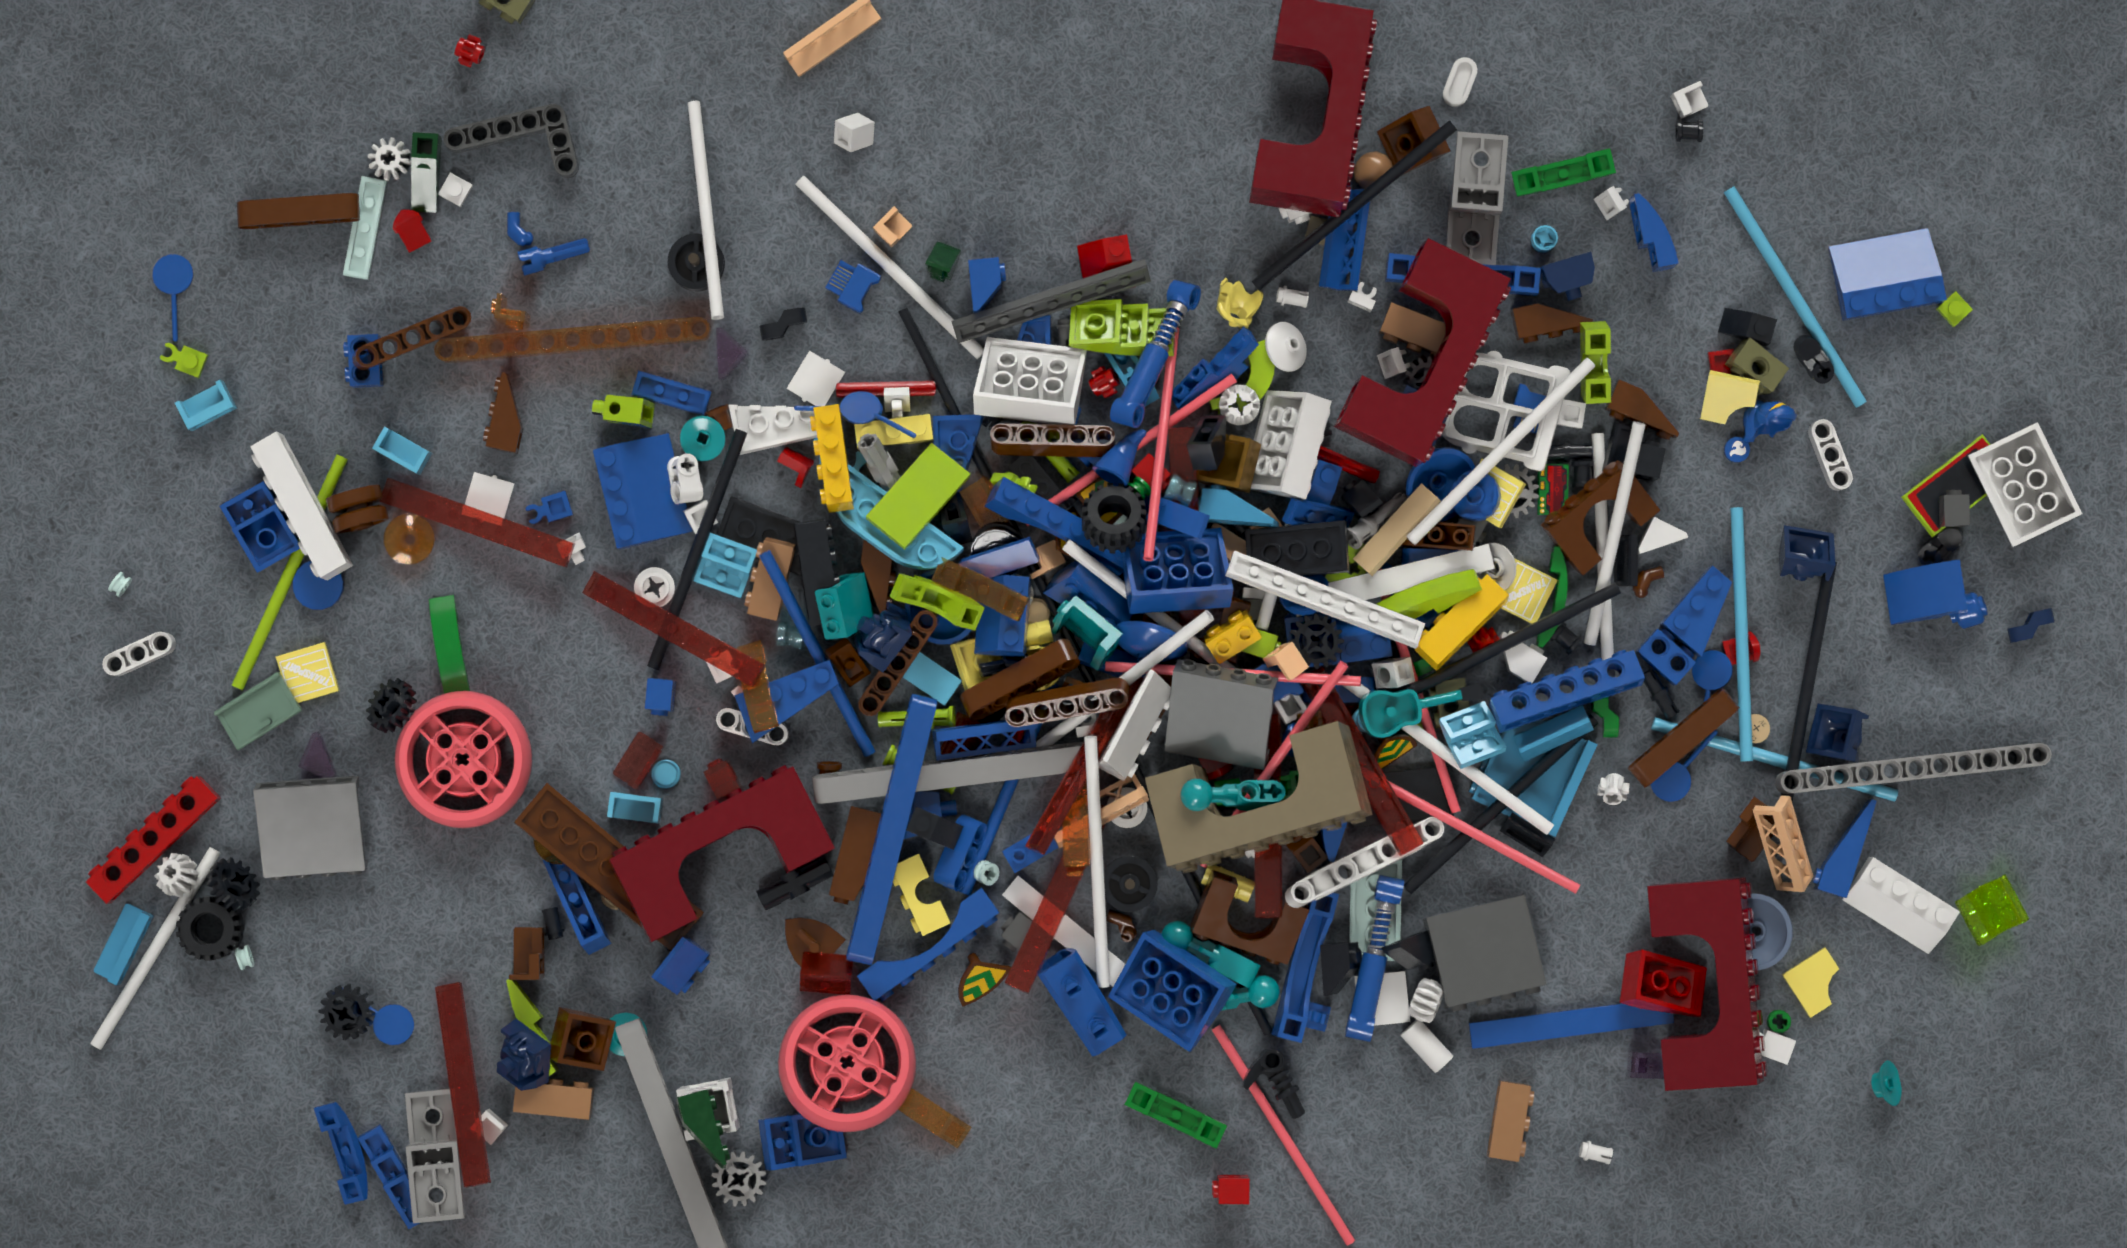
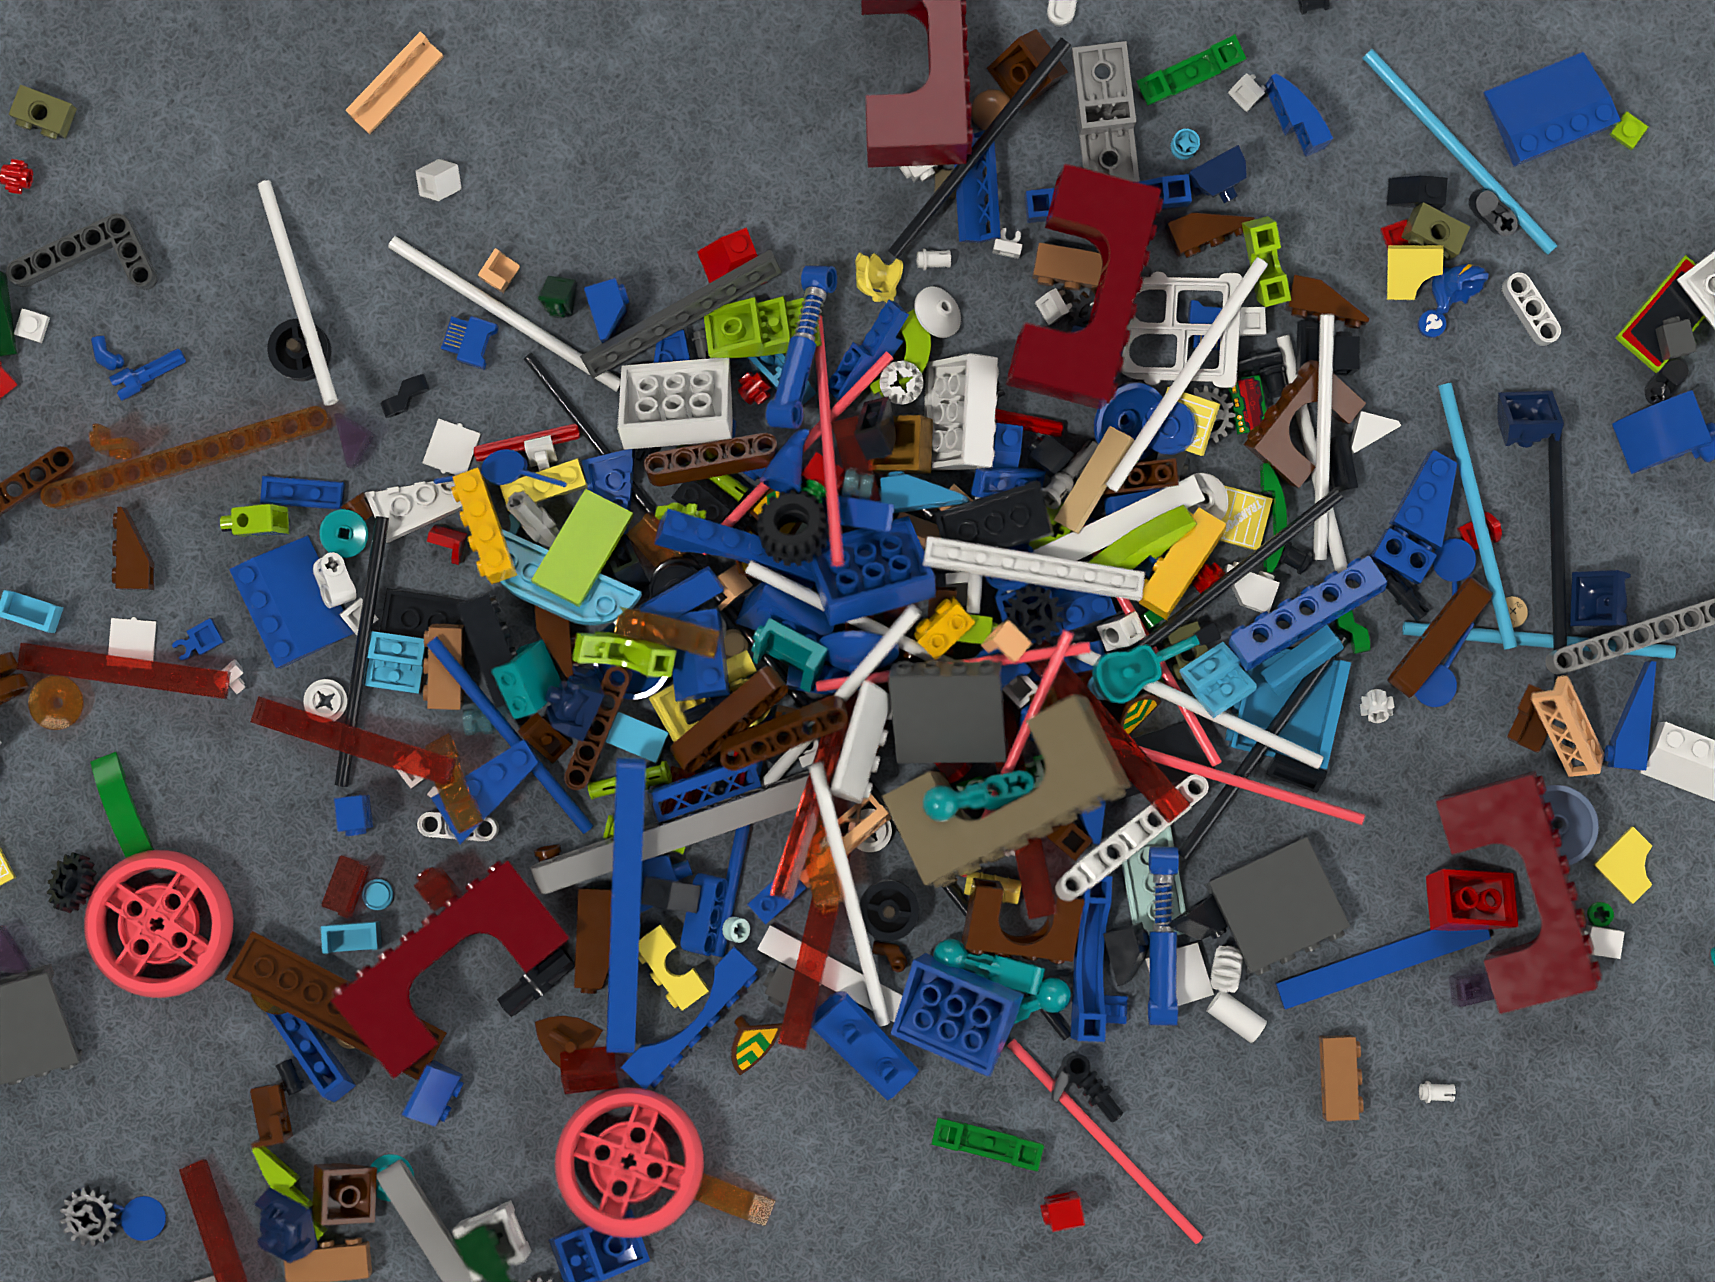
camera: 15 degrees left, 0 degrees up
(1644, 580) = (1364, 480): reddish brown arm -> none

